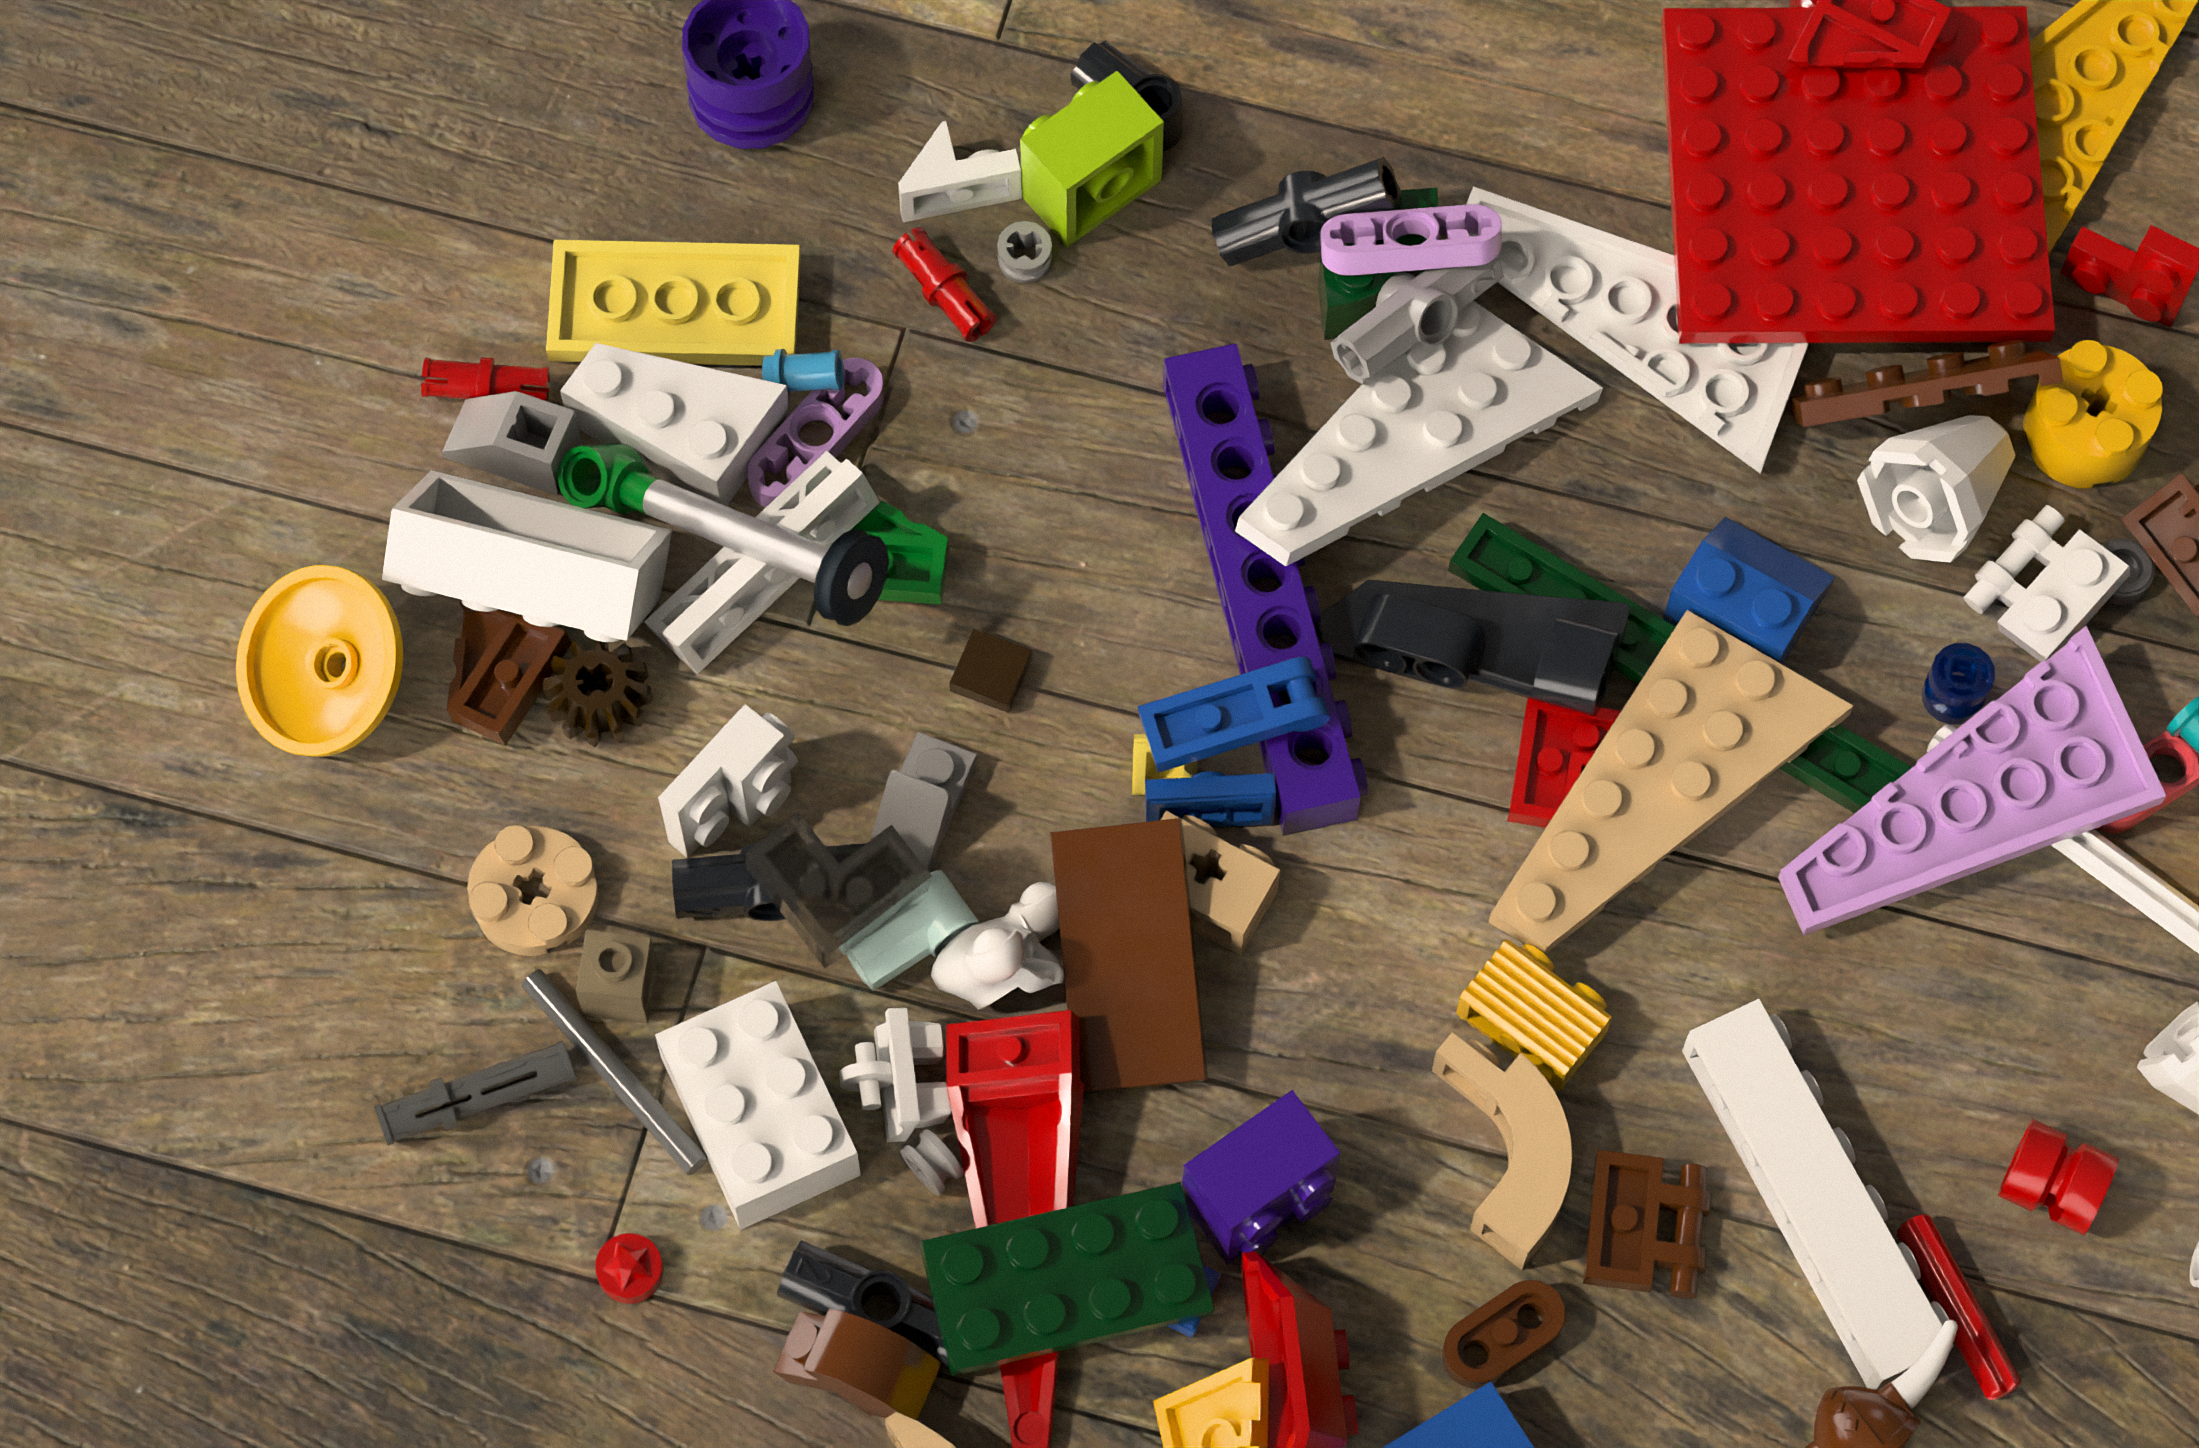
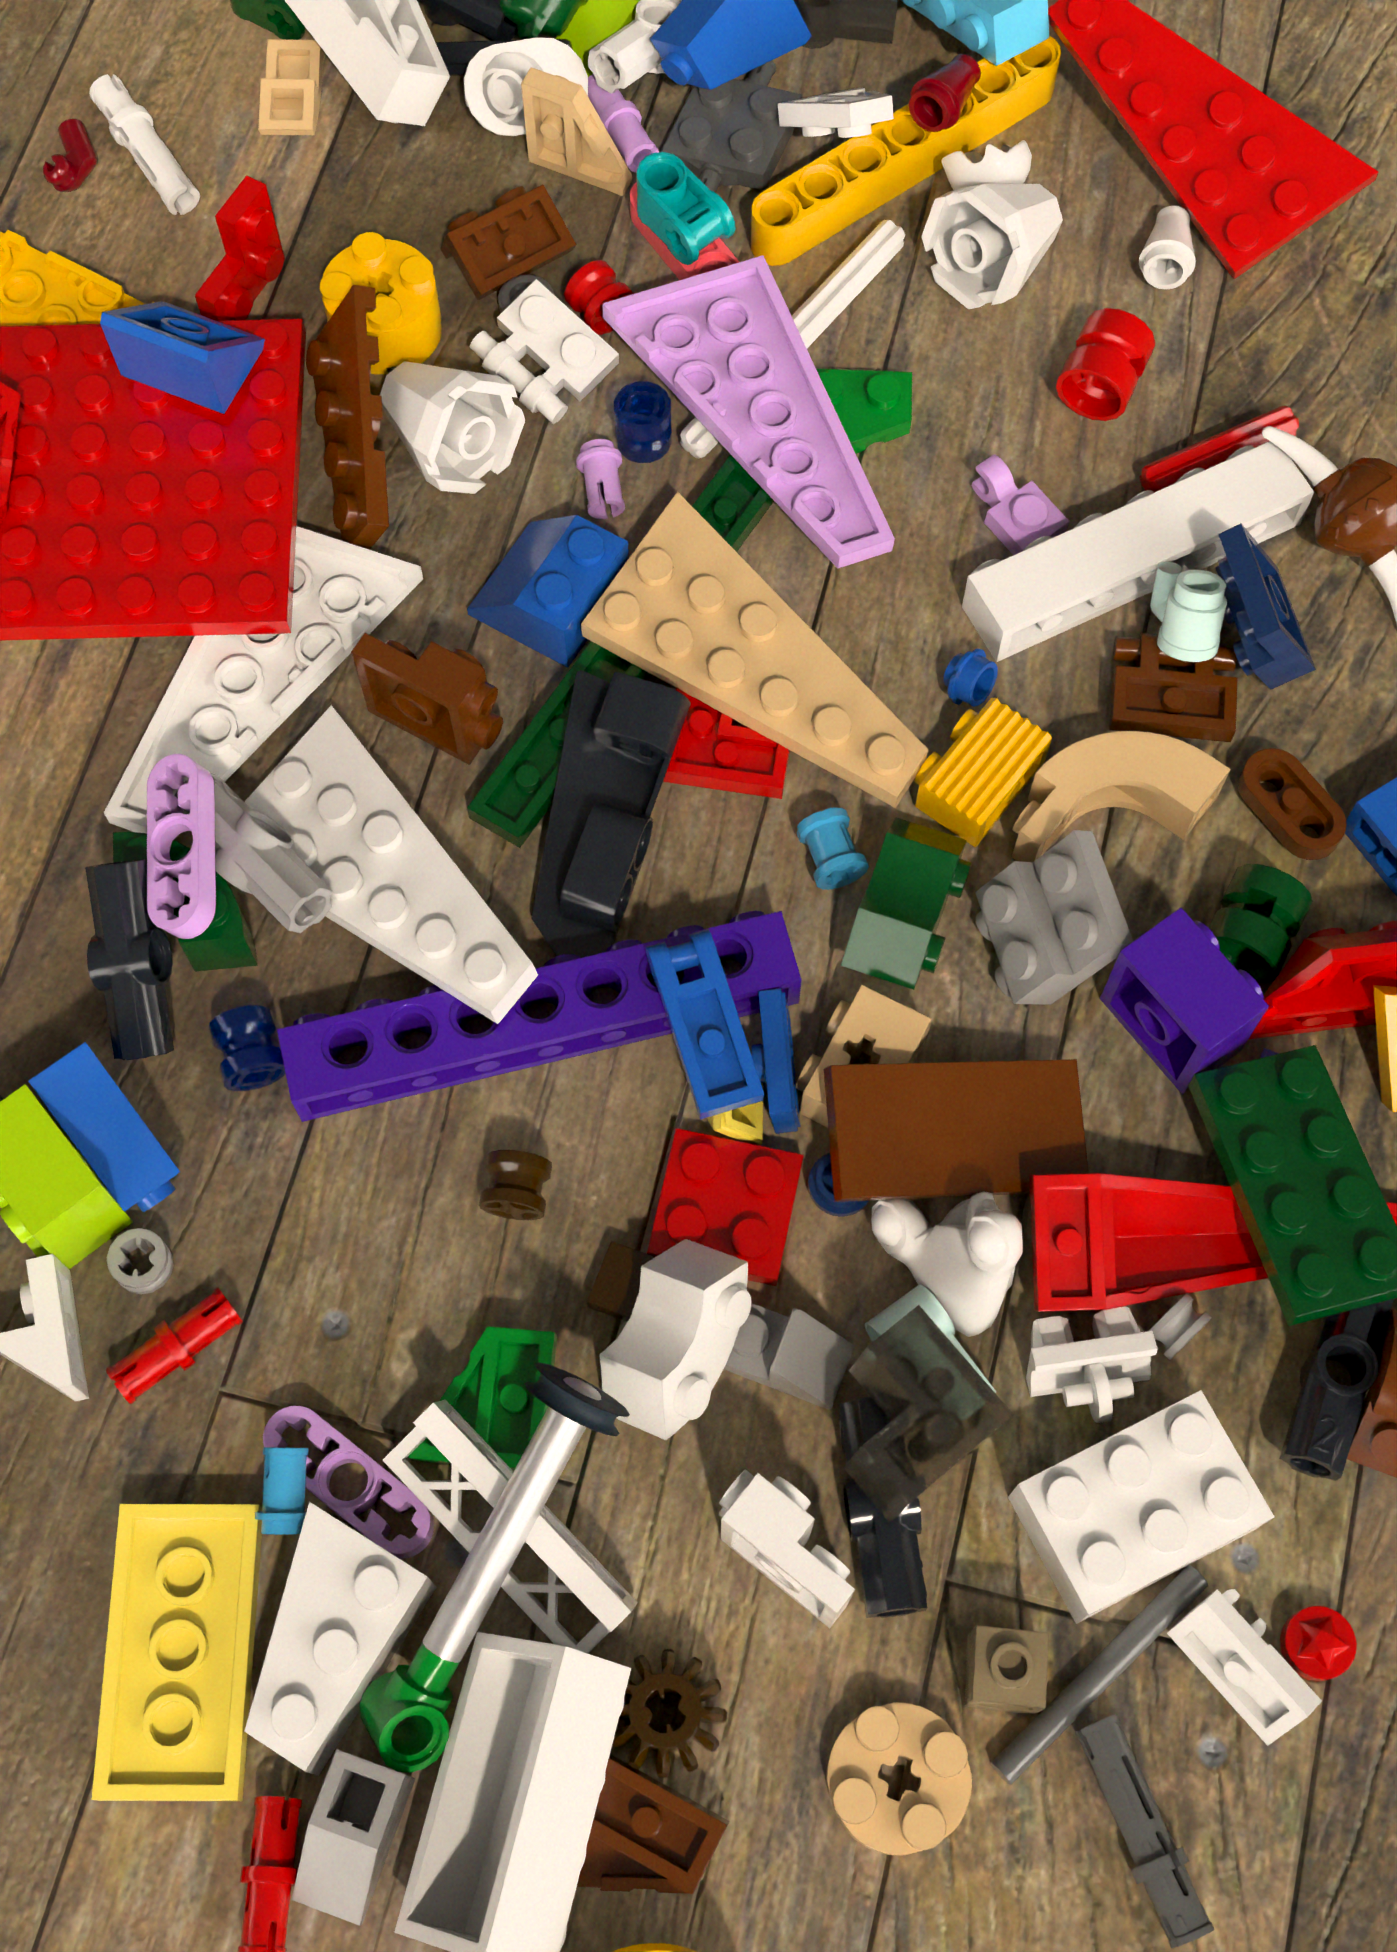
camera: 90 degrees left, 0 degrees up
(589, 1206) = (1244, 1666): none -> white plate
(930, 697) = (677, 1337): none -> white brick
(1066, 757) = (728, 1199): none -> red plate
(1087, 564) = (515, 1185): none -> dark brown wheel
(1148, 206) = (106, 1129): none -> blue slope
(1223, 326) = (247, 1048): none -> clear blue wheel
(1350, 1054) = (1052, 921): none -> light grey plate
(1380, 927) = (904, 904): none -> dark green brick
(1380, 1271) = (1259, 918): none -> dark green wheel
(1444, 862) = (831, 848): none -> dark azure bush
(1596, 474) = (433, 698): none -> reddish brown plate
(1650, 1012) = (970, 677): none -> blue plate
(1716, 1225) = (1190, 610): none -> light aqua piece
(1723, 1300) = (1262, 612): none -> dark blue plate
(1862, 1084) = (1016, 513): none -> lavender plate
(1888, 644) = (600, 467): none -> lavender pin
(1992, 210) = (181, 352): none -> blue slope
(2000, 917) = (870, 404): none -> green wing
(2126, 639) = (591, 288): none -> red wheel

